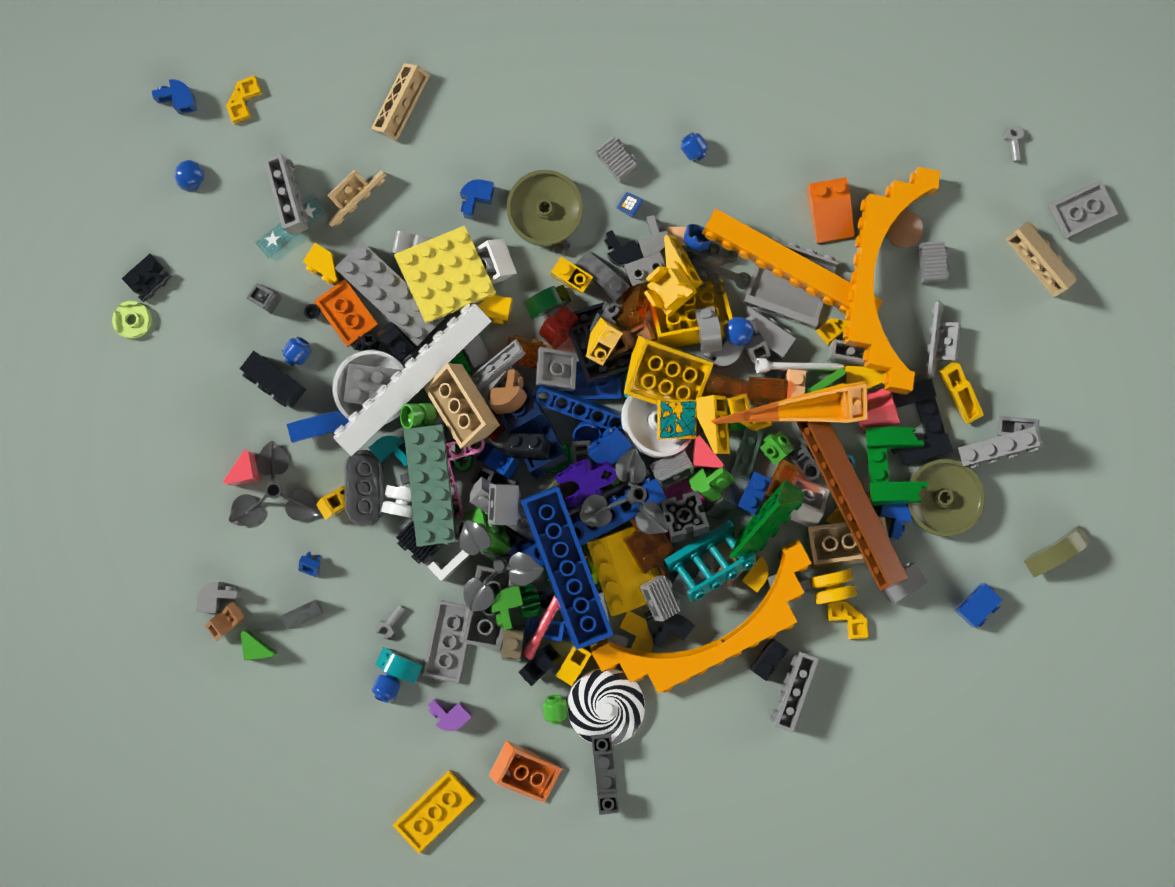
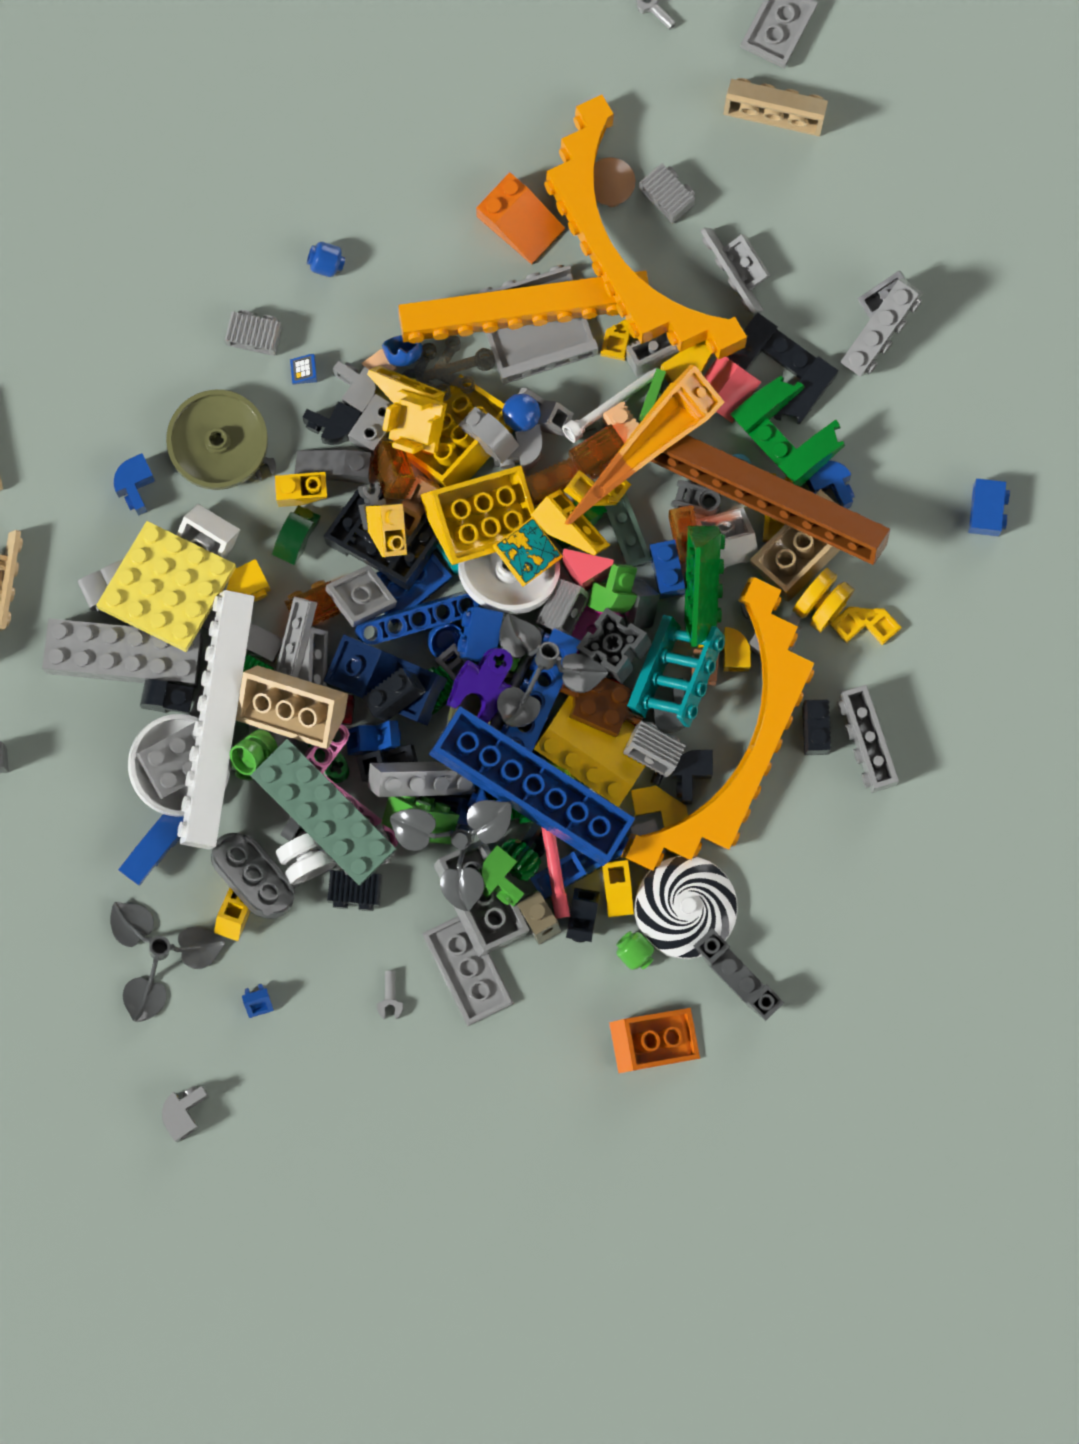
camera: 40 degrees left, 5 degrees down
(226, 621) = (213, 1128): medium nougat brick -> none
(244, 470) = (111, 955): coral slope -> none
(254, 647) = (267, 1133): bright green slope -> none
(272, 380) = (66, 835): black brick -> none
(296, 351) = (67, 788): blue head -> none
(302, 614) = (289, 1059): flat silver slope -> none
(309, 308) = (46, 731): black hinge -> none
(322, 262) = (22, 675): yellow slope -> none
(346, 312) = (89, 708): orange plate -> none
(367, 342) = (136, 722): black gear -> none
(385, 688) = (439, 1066): blue head -> none
(388, 446) = (244, 812): teal brick -> none
(398, 665) = (434, 1032): teal brick -> none
(434, 811) = (591, 1158): yellow tile -> none
(450, 720) = (534, 1047): medium lavender brick -> none
(451, 567) = (407, 898): white panel -> none
(503, 504) = (416, 770): light grey brick -> none
(508, 398) = (335, 662): medium nougat brick -> none
(554, 328) = (326, 555): clear red brick -> none
(776, 338) = (567, 391): light grey slope -> none
(776, 447) = (653, 503): bright green brick -> none
(912, 583) = (899, 539): light grey brick -> none
(951, 499) = (874, 420): olive dish -> none
(960, 392) = (799, 304): yellow slope -> none
(1058, 552) = (1024, 391): olive arch -> none

